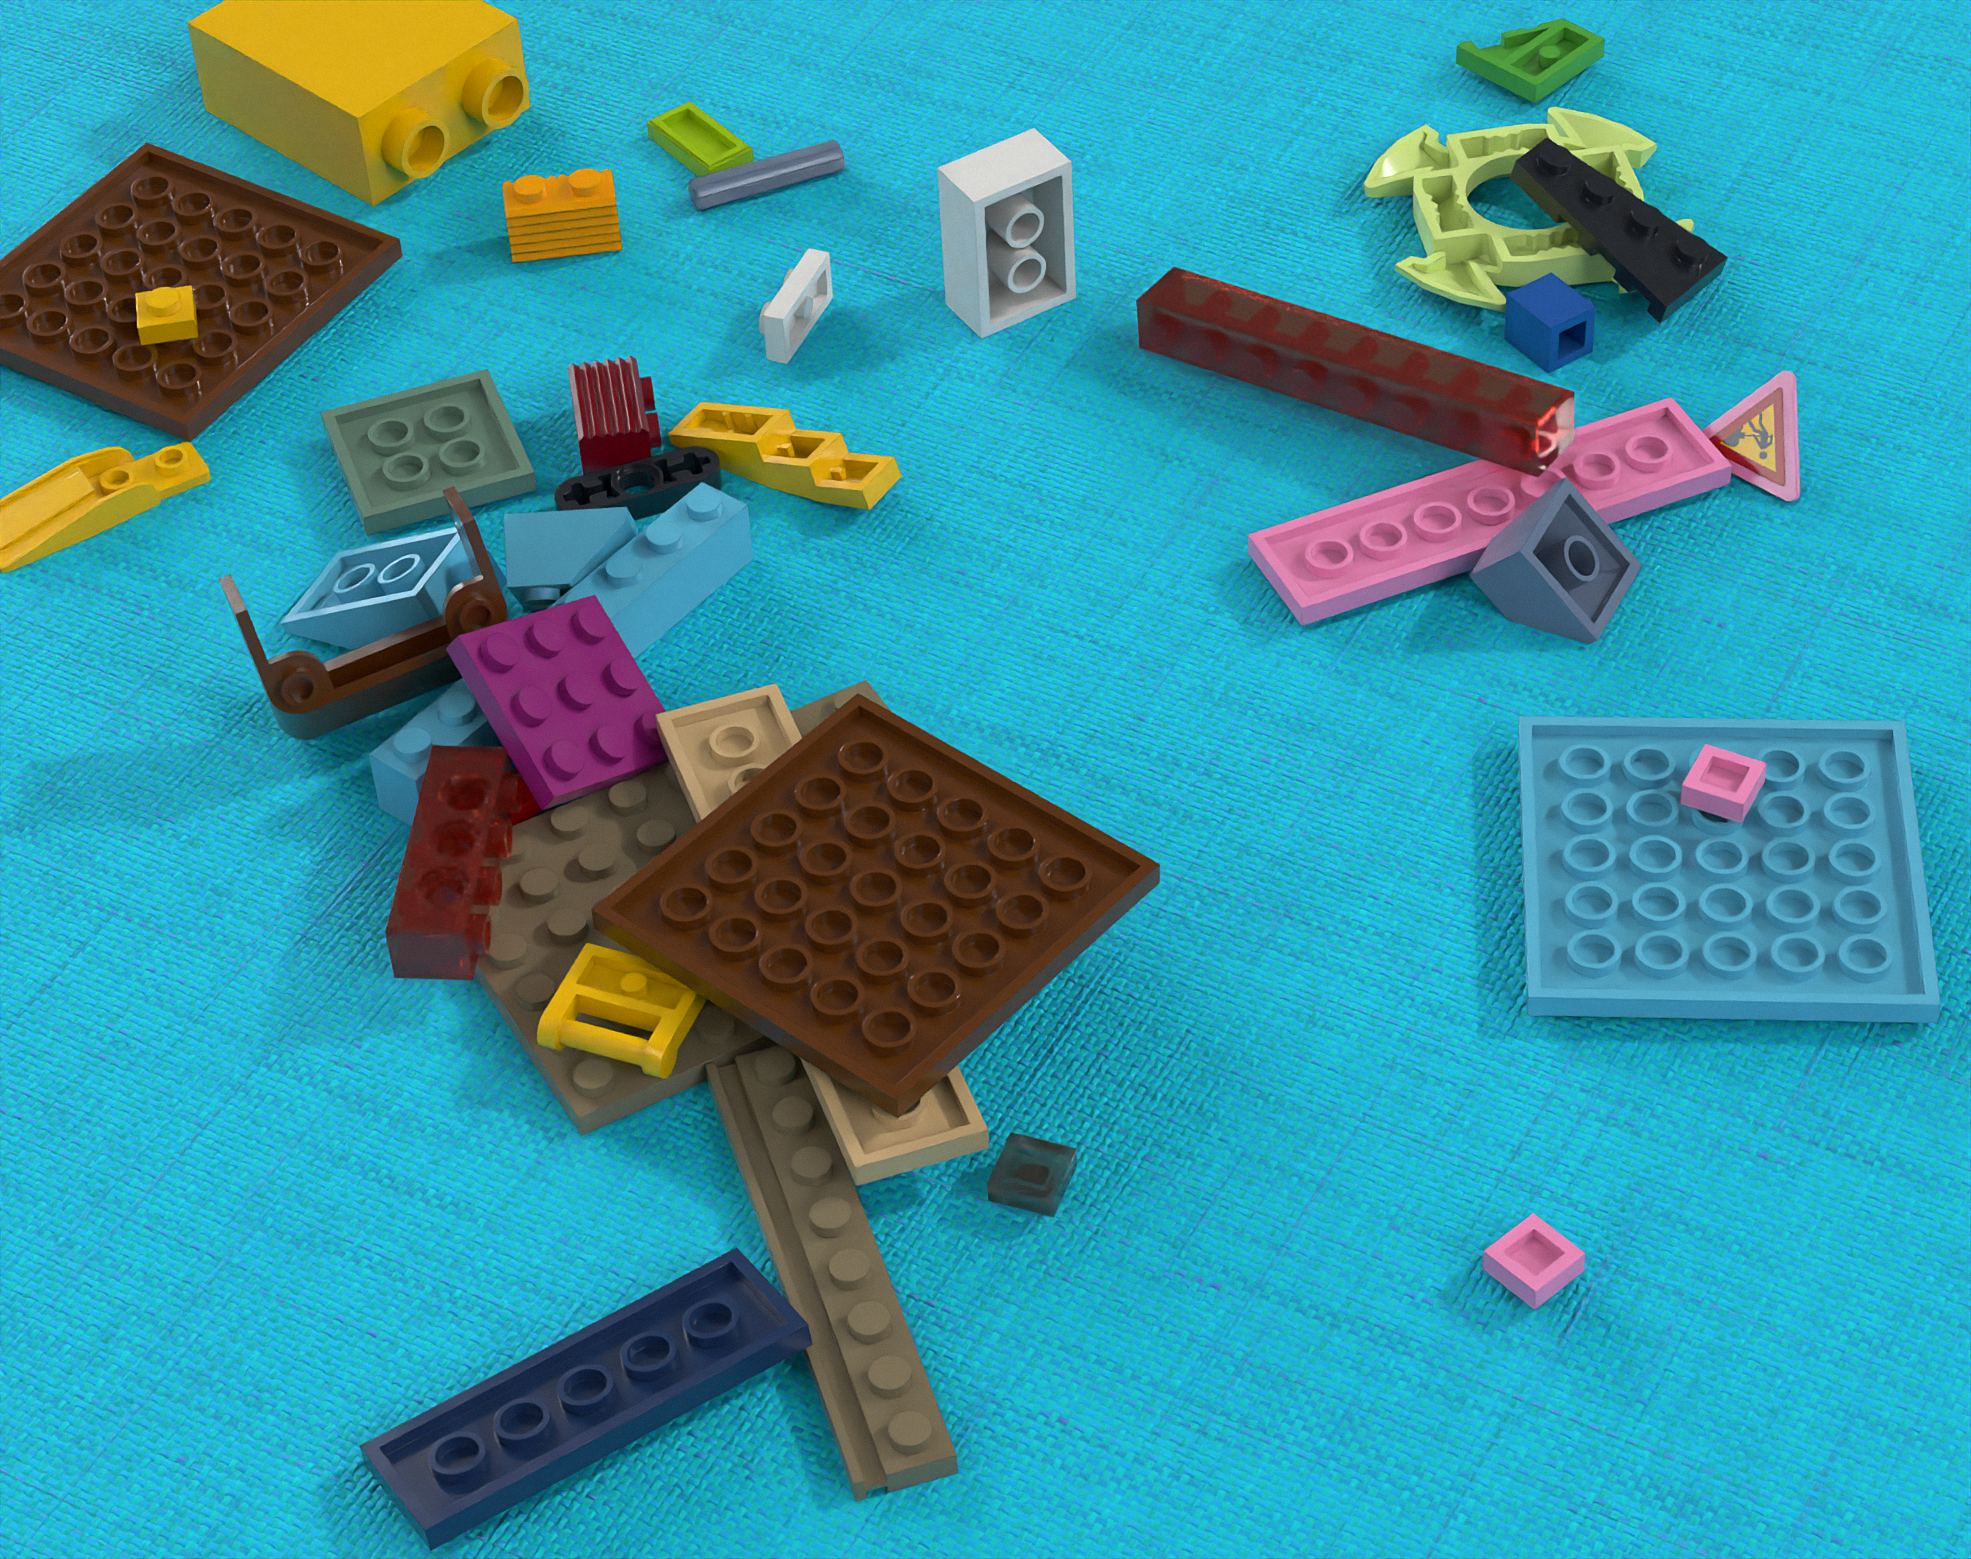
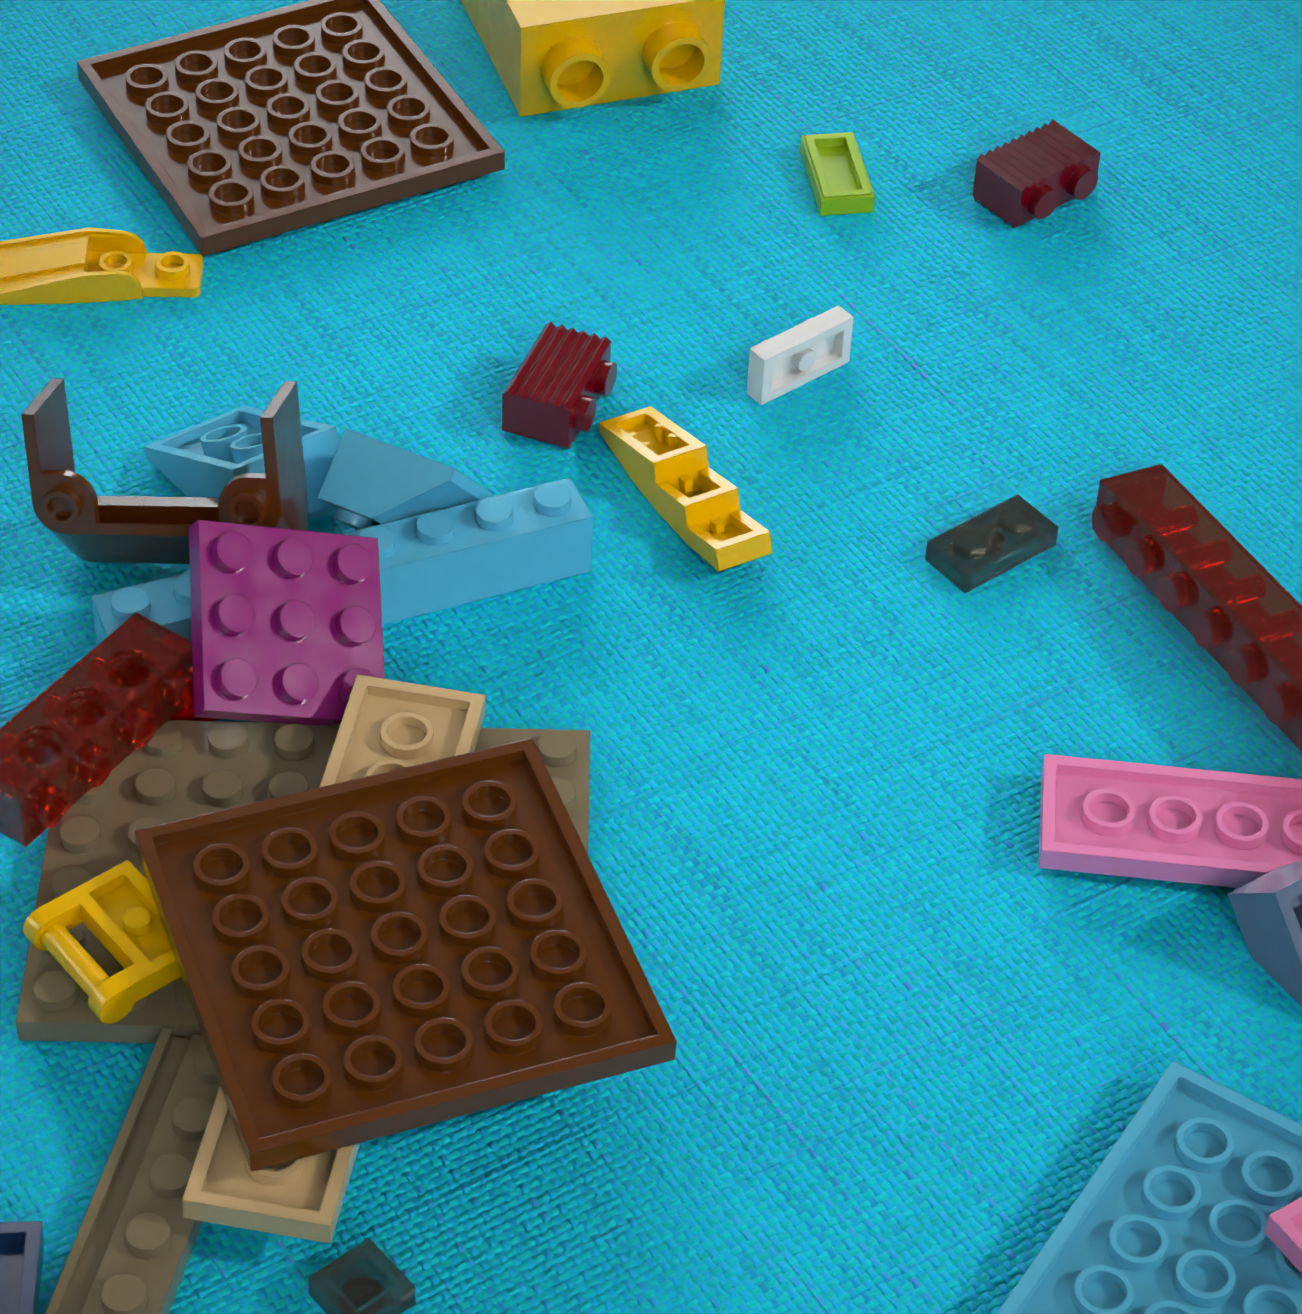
camera: 25 degrees right, 0 degrees up
(166, 315) = (257, 137): yellow plate -> none
(423, 440) = (384, 348): sand green plate -> none
(561, 215) = (656, 188): light orange brick -> none
(682, 468) = (497, 443): black beam -> none
(766, 175) = (870, 225): sand blue axle -> none
(878, 74) = (1035, 174): none -> dark red brick
(1007, 232) = (1017, 364): white brick -> none
(1070, 393) = (991, 543): none -> clear smoke plate

